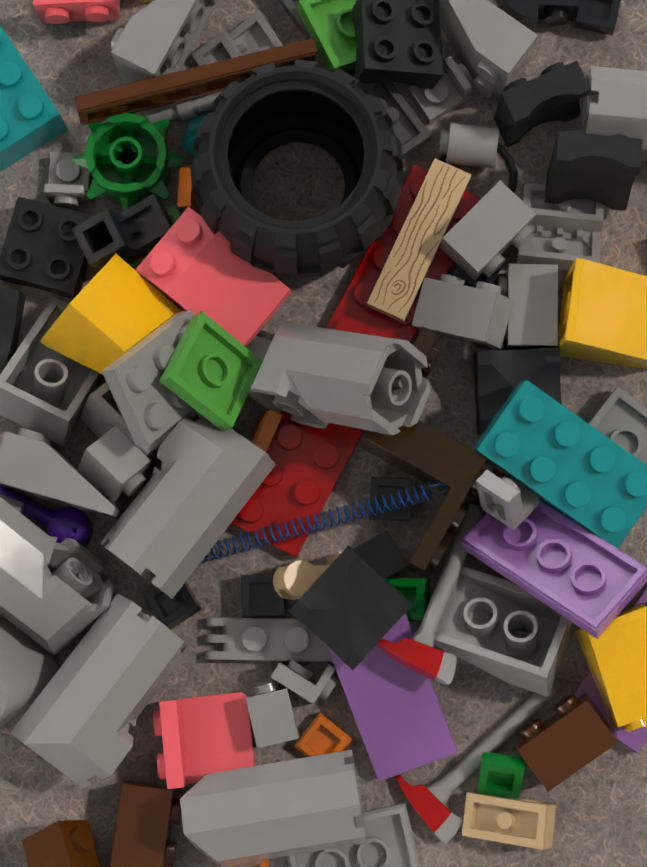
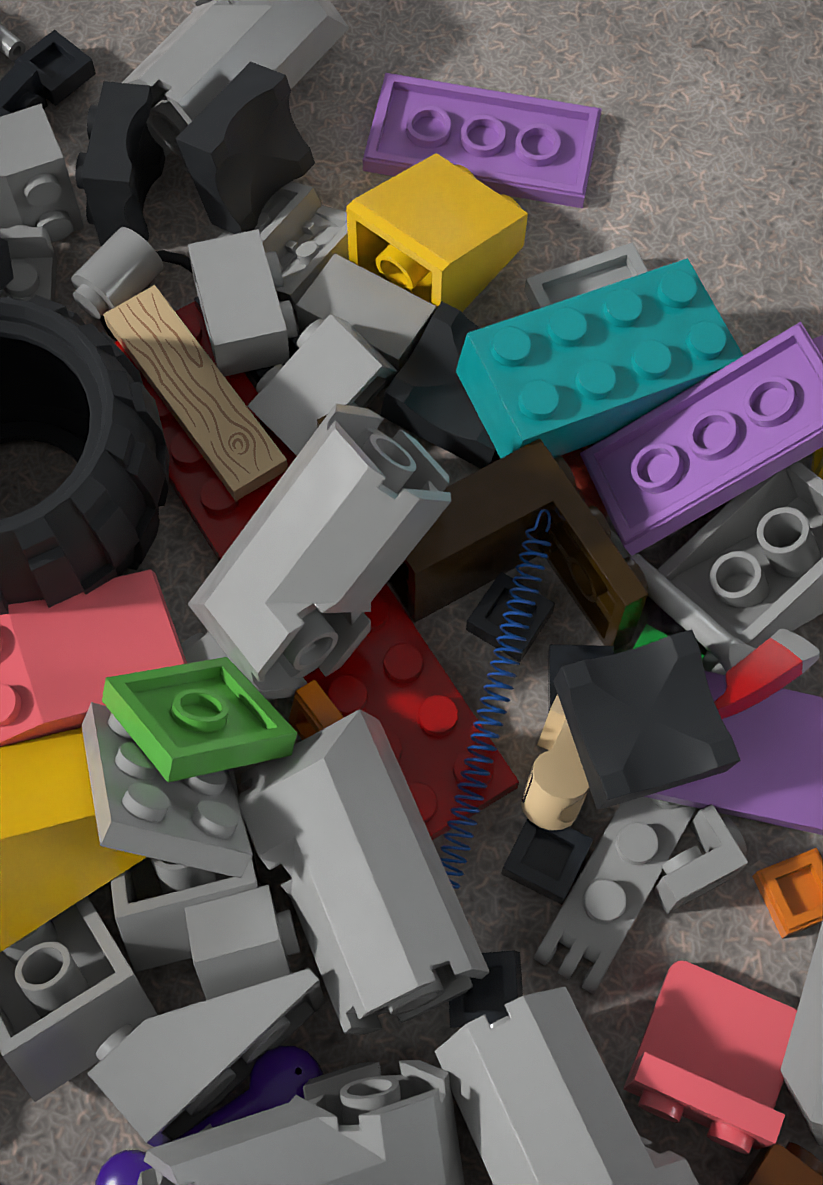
camera: 65 degrees left, 15 degrees down
(272, 715) = (731, 936): light grey brick -> none
(505, 499) = (604, 453): light grey bracket -> none

